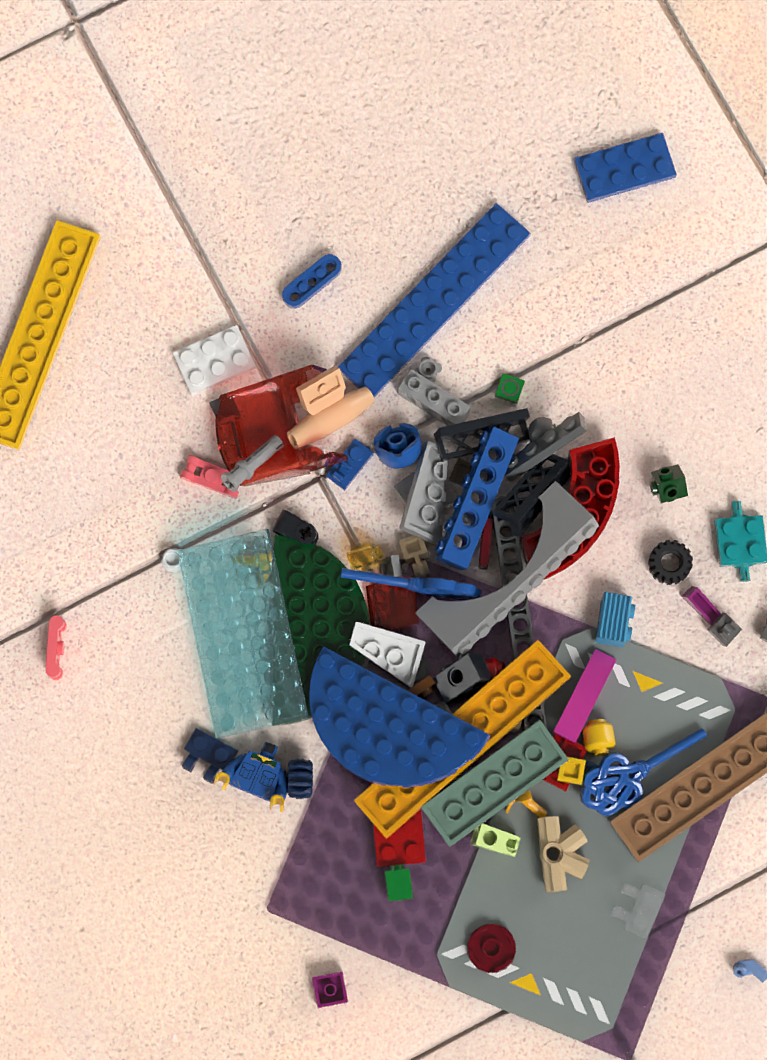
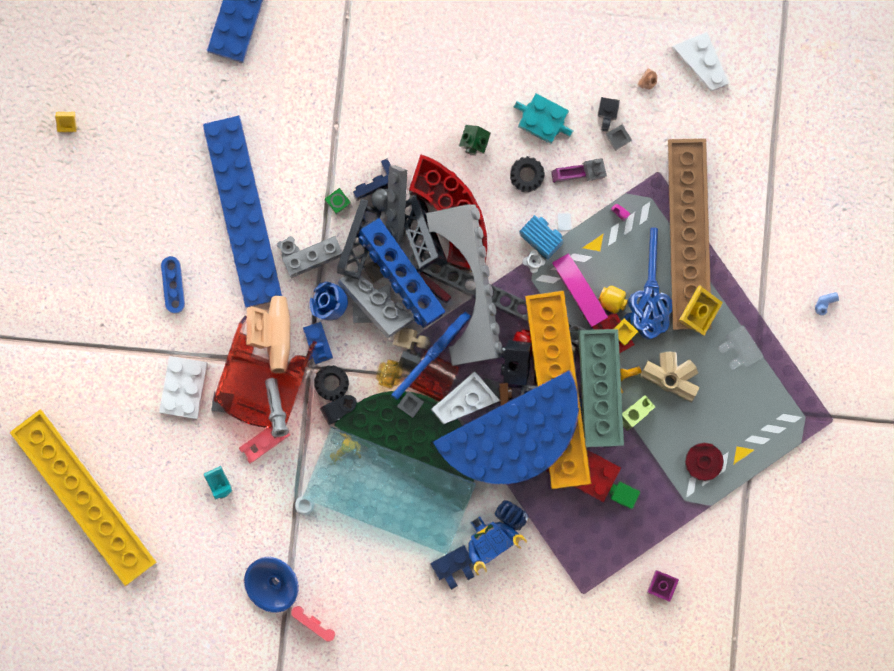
camera: 65 degrees left, 5 degrees up
(68, 578) = (264, 588): none -> blue dish
(139, 457) = (218, 482): none -> teal bracket
(317, 490) = (331, 371): none -> black tyre
(346, 598) = (410, 404): none -> dark grey plate
(406, 70) = (66, 121): none -> yellow plate
(538, 407) = (378, 182): none -> dark blue bracket
(589, 625) = (539, 261): none -> white plate
(647, 634) = (564, 221): none -> white sticker
(648, 836) = (700, 311): none -> yellow slope
(697, 685) = (622, 213): none -> dark pink tile

